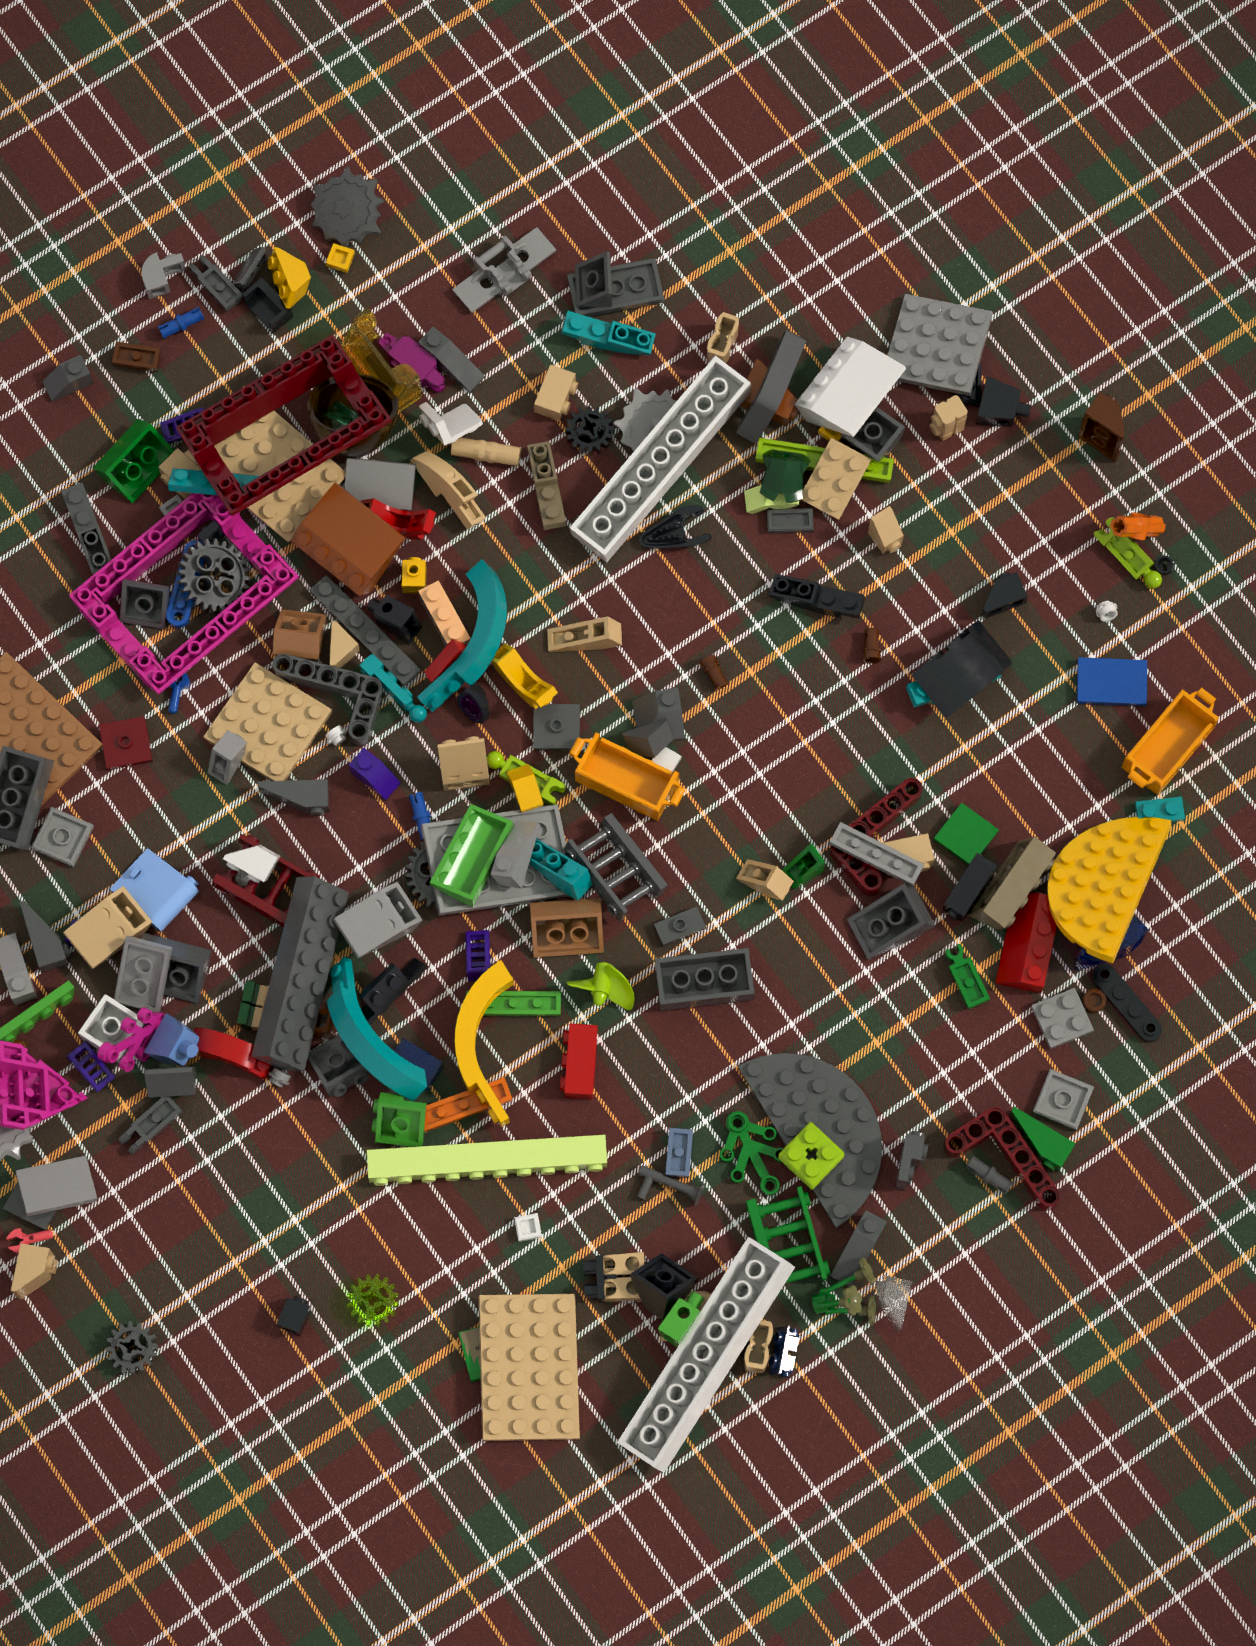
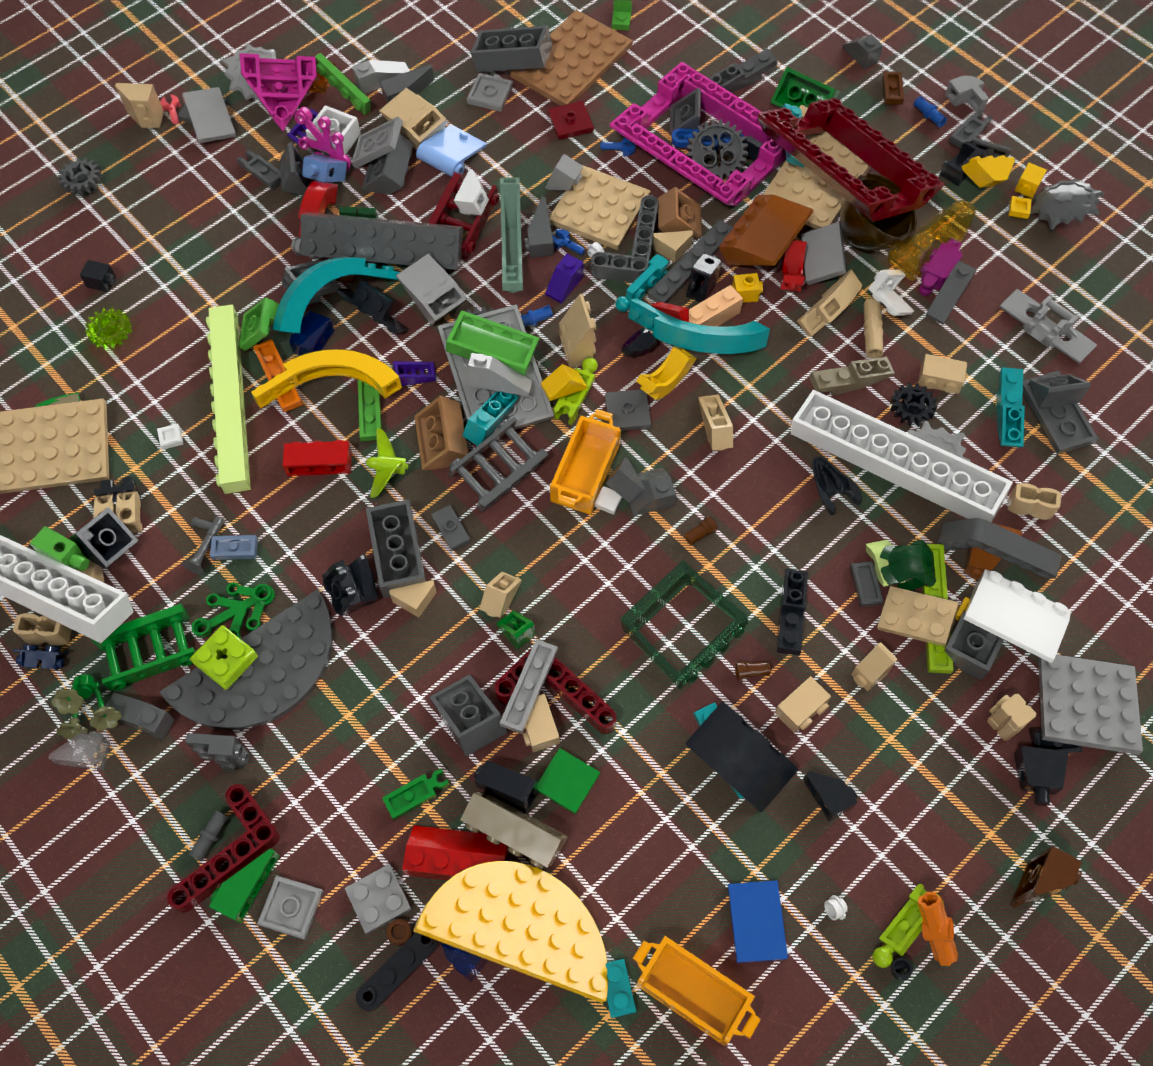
camera: 85 degrees right, 10 degrees down
(308, 237) = (1030, 180): none -> yellow brick
(317, 766) = (565, 235): none -> blue bar
(320, 830) = (511, 235): none -> sand green arch
(743, 1026) = (350, 585): none -> black piece
(762, 965) = (414, 597): none -> tan slope
(815, 755) = (662, 594): none -> clear green windscreen
(914, 604) = (803, 705): none -> tan brick

